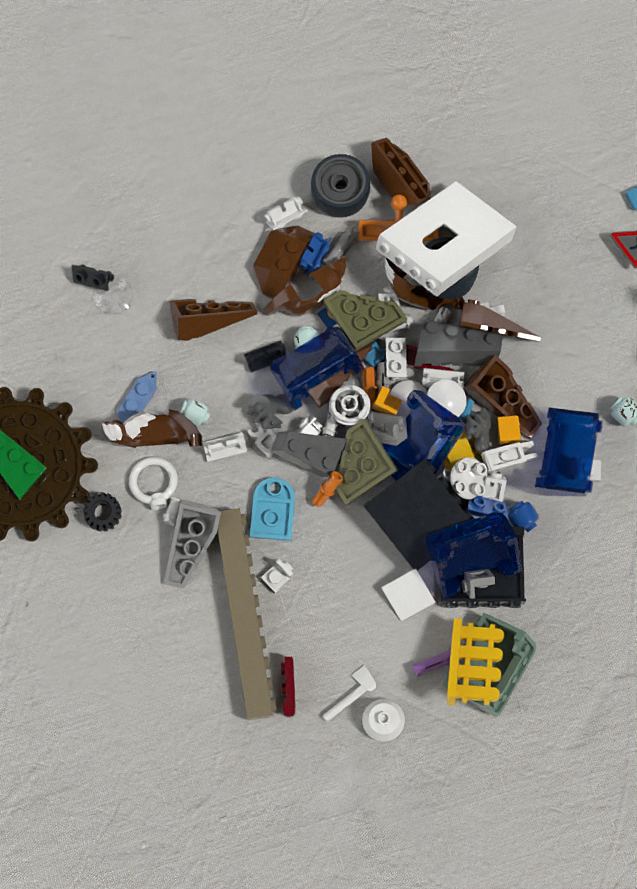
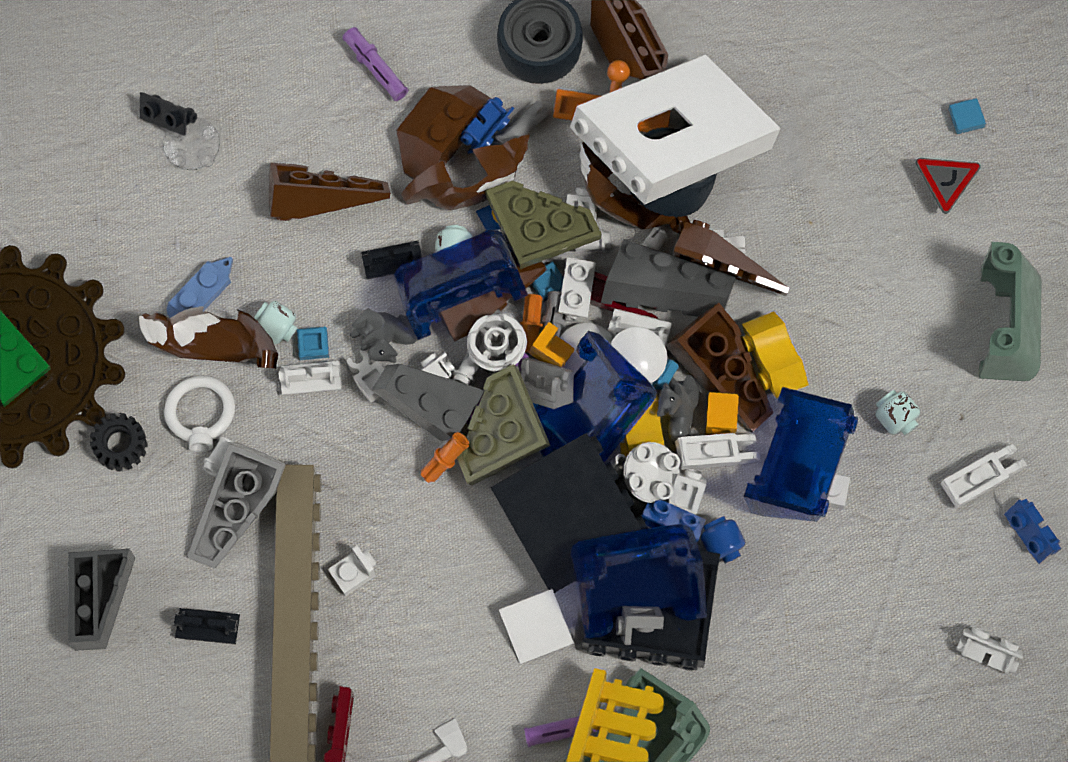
camera: 10 degrees right, 5 degrees down
(107, 620) = (95, 595): none -> dark grey wedge
(186, 629) = (206, 626): none -> black hinge
(222, 422) = (313, 343): none -> dark azure tile
(223, 214) = (368, 55): none -> medium lavender pin
(272, 512) = (362, 480): medium azure tile -> none
(293, 210) = (467, 63): white hinge -> none
(536, 383) = (774, 354): none -> yellow brick

